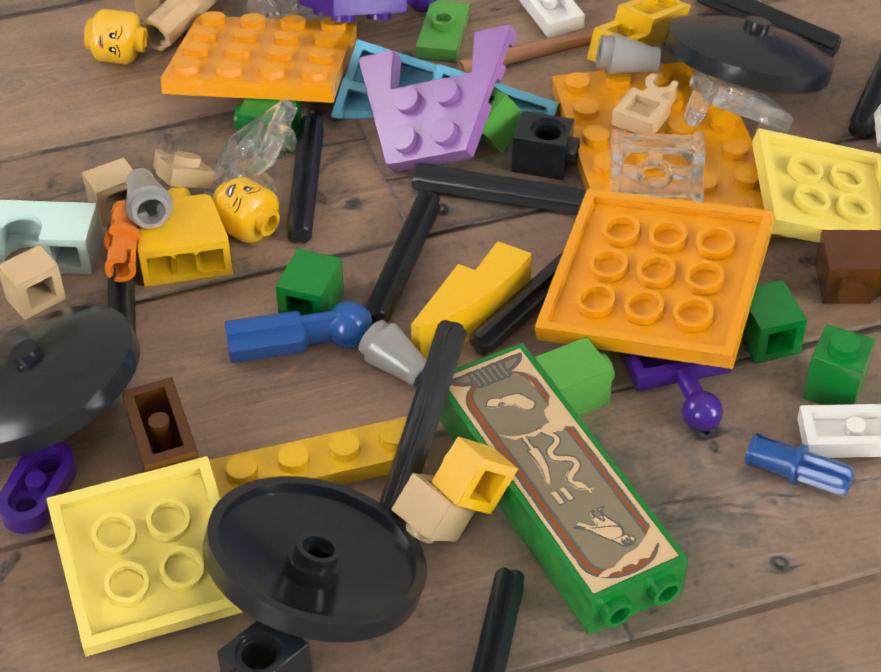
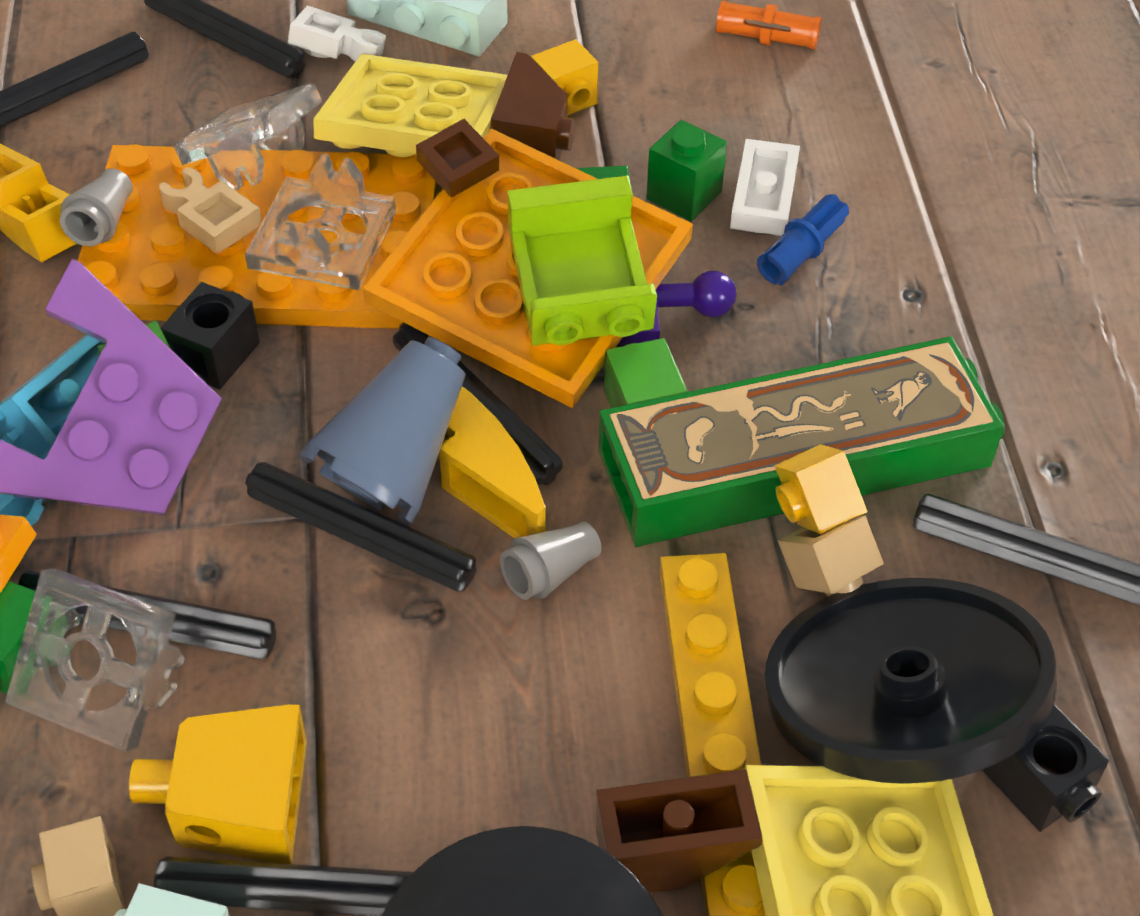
camera: 80 degrees left, 5 degrees up
(121, 244) = (240, 852): orange pin -> none
(147, 200) = (187, 792): light grey cone -> none
(183, 170) = (84, 764): tan plate -> none
(247, 209) = (204, 682): yellow head -> none
(293, 332) = (479, 667): blue piece -> none
(310, 283) = (401, 631): green brick -> none
(425, 409) = (702, 528): black axle -> none
(447, 228) = (393, 429): none -> sand blue cone
(497, 188) = (260, 406): black axle -> none
(646, 290) = (579, 261): none -> lime panel
(717, 192) = (457, 157): none -> reddish brown plate
(749, 53) = (143, 104): black dish -> none

